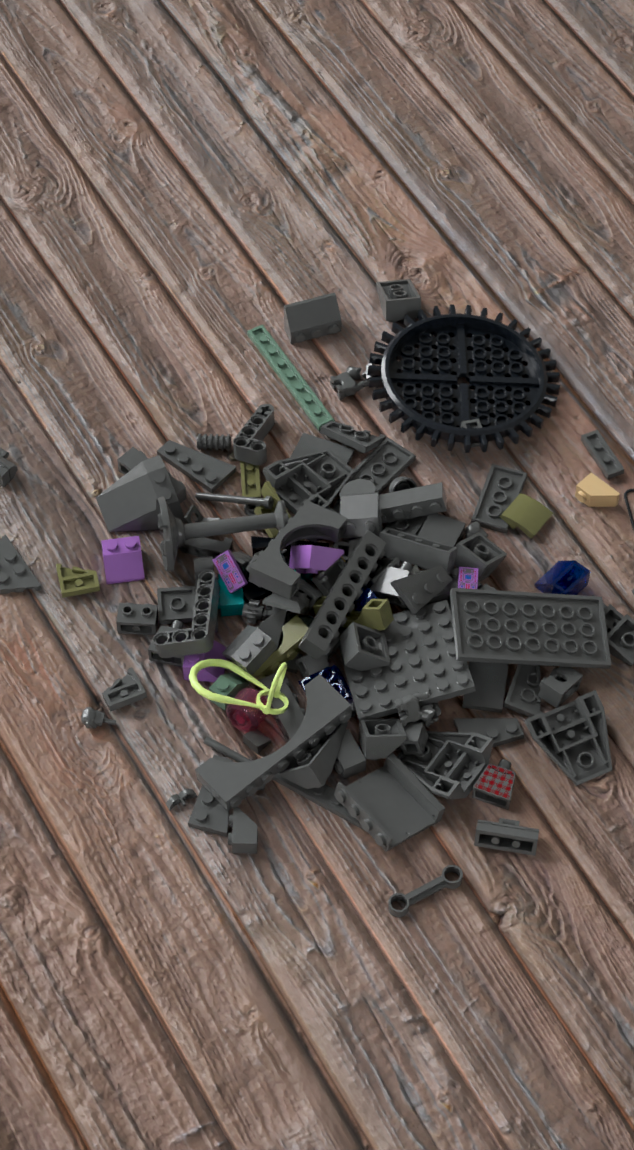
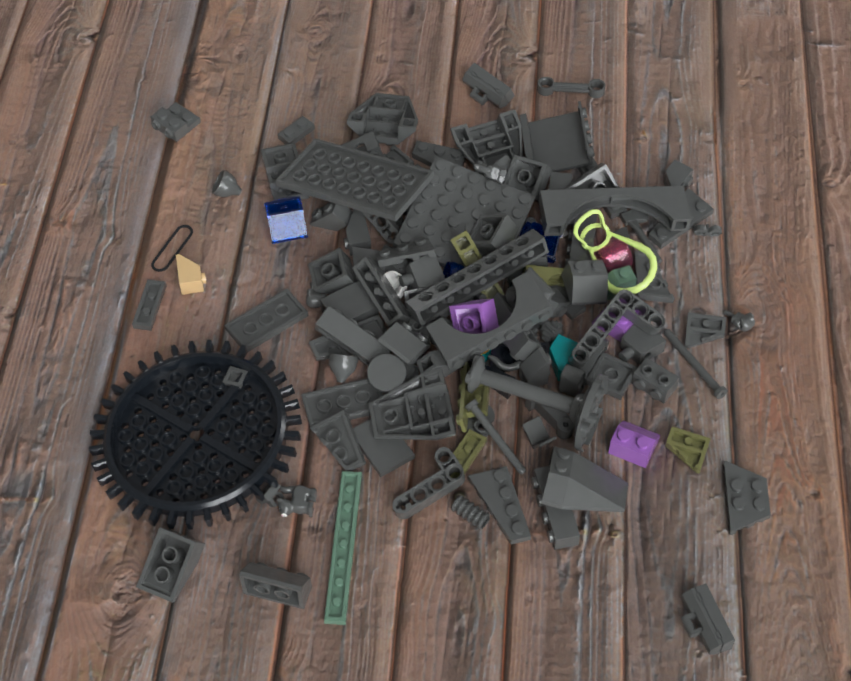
camera: 145 degrees left, 0 degrees up
(79, 643) = (719, 392): none -> dark grey bar
(202, 714) = (657, 289): none -> dark grey wing
(230, 571) = (555, 351): medium lavender tile -> none
(467, 578) = (366, 246): medium lavender tile -> none
(495, 785) = (468, 113): dark grey torso -> none
(526, 514) = (261, 288): olive slope -> none

